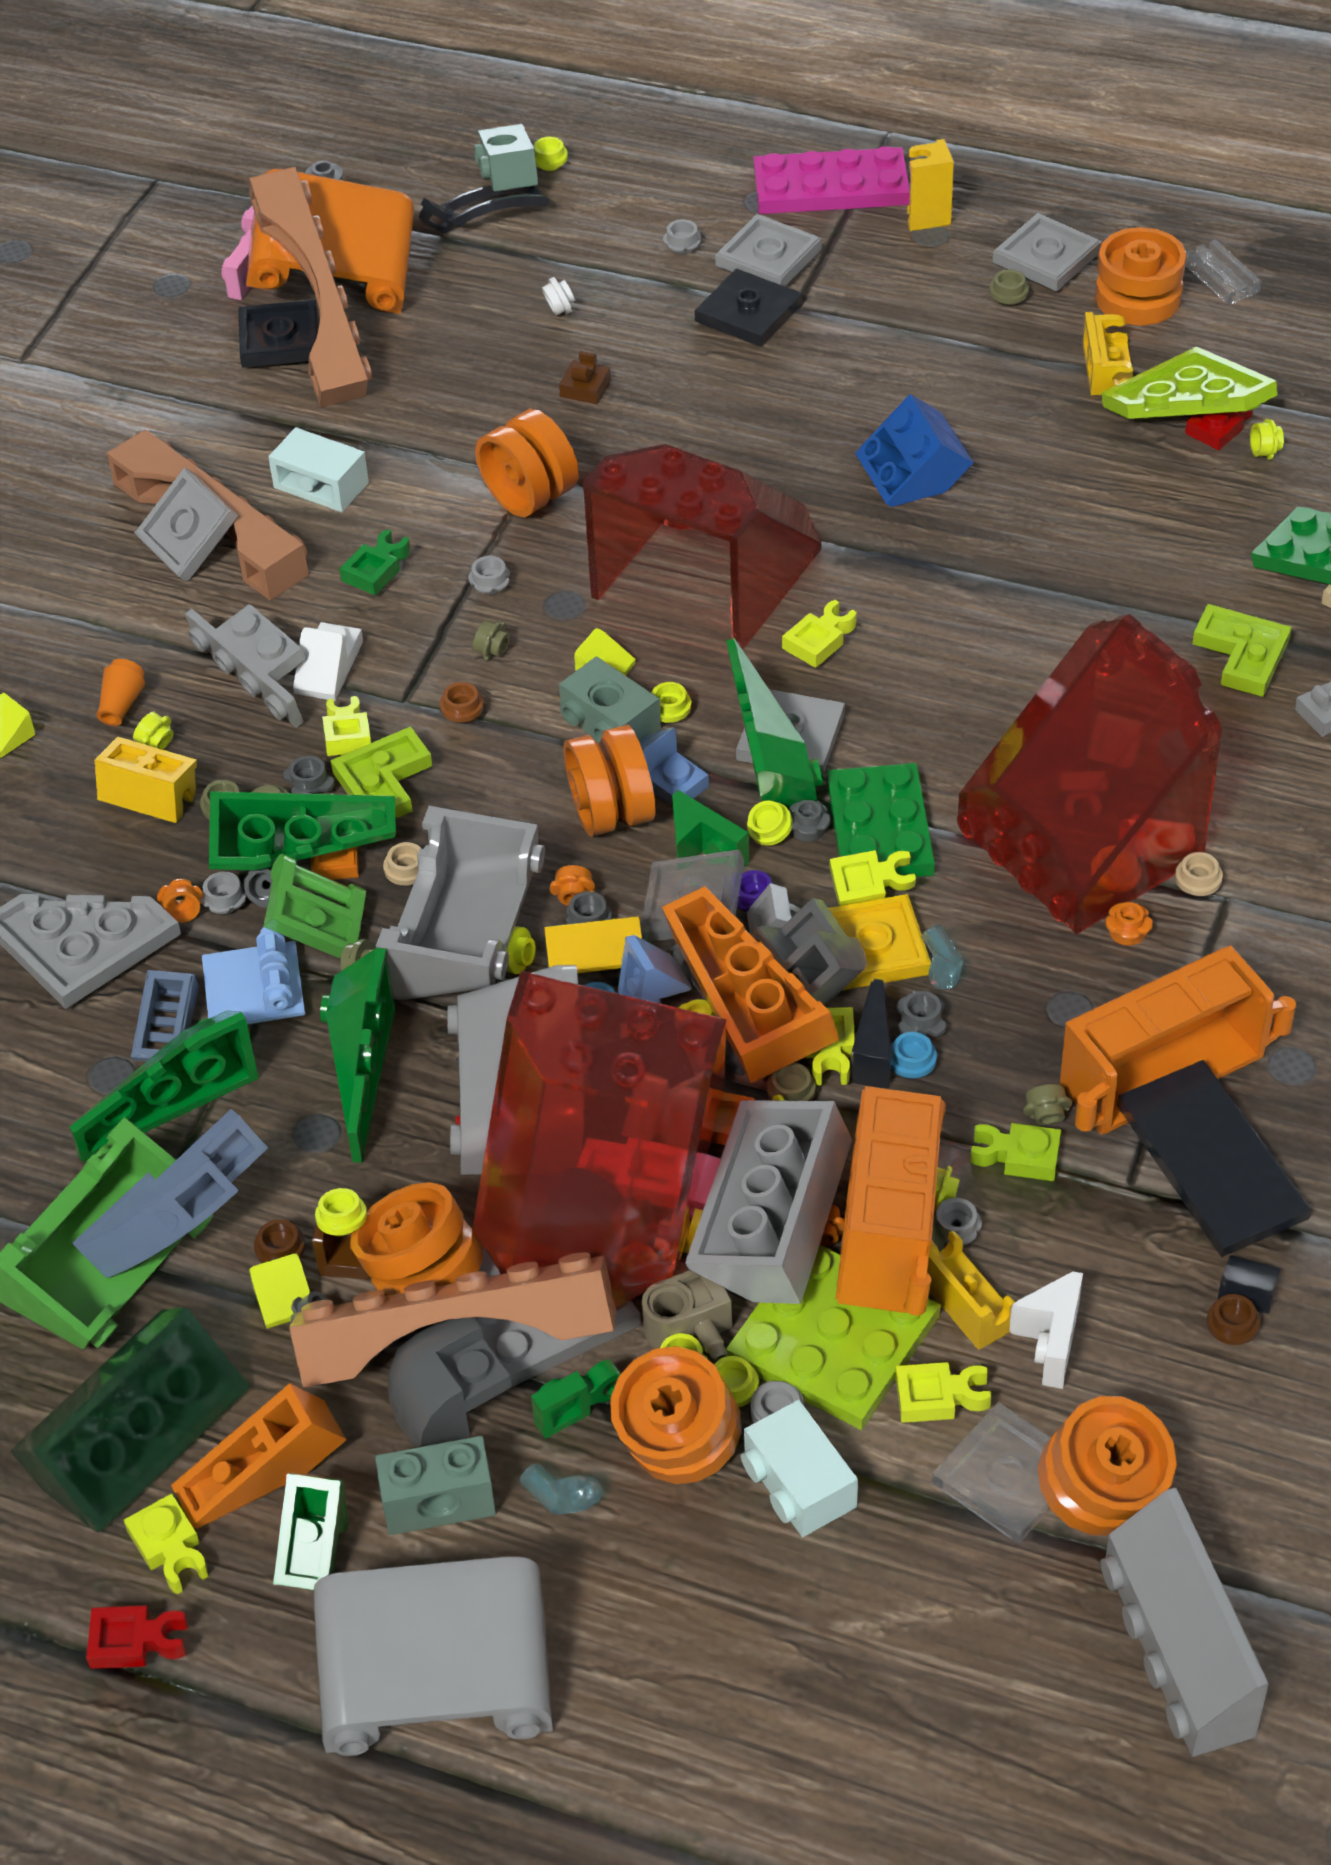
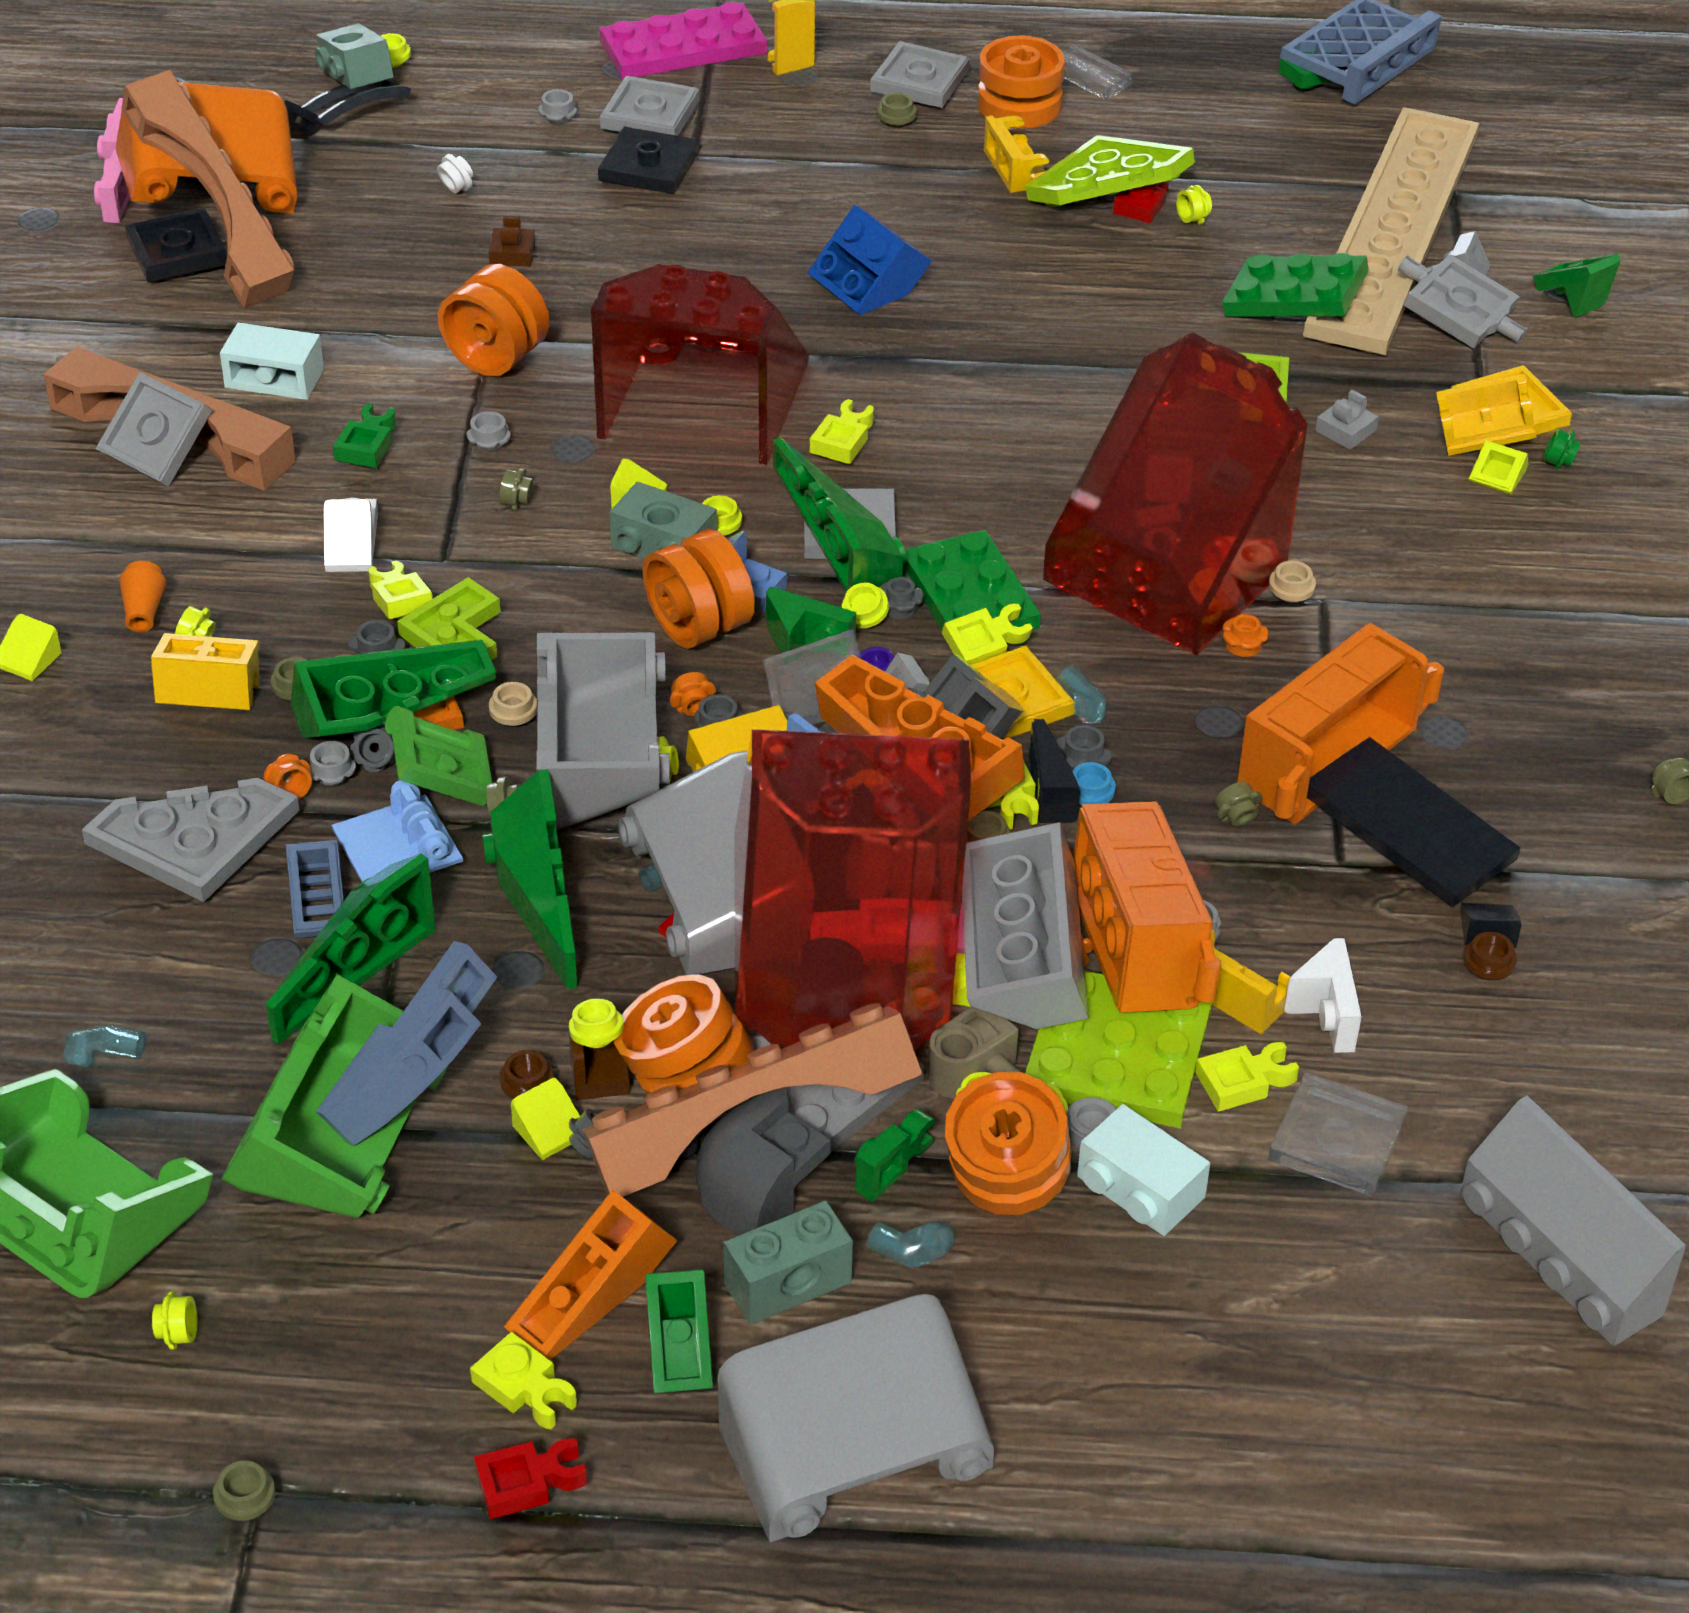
camera: 20 degrees left, 5 degrees down
(131, 1418) = (438, 1269): clear green slope -> none
(253, 652) = (275, 537): light grey bracket -> none
(461, 702) = (508, 549): dark orange plate -> none
(1025, 1151) = (1230, 848): lime plate -> none
(1106, 1464) = (1439, 1100): orange wheel -> none

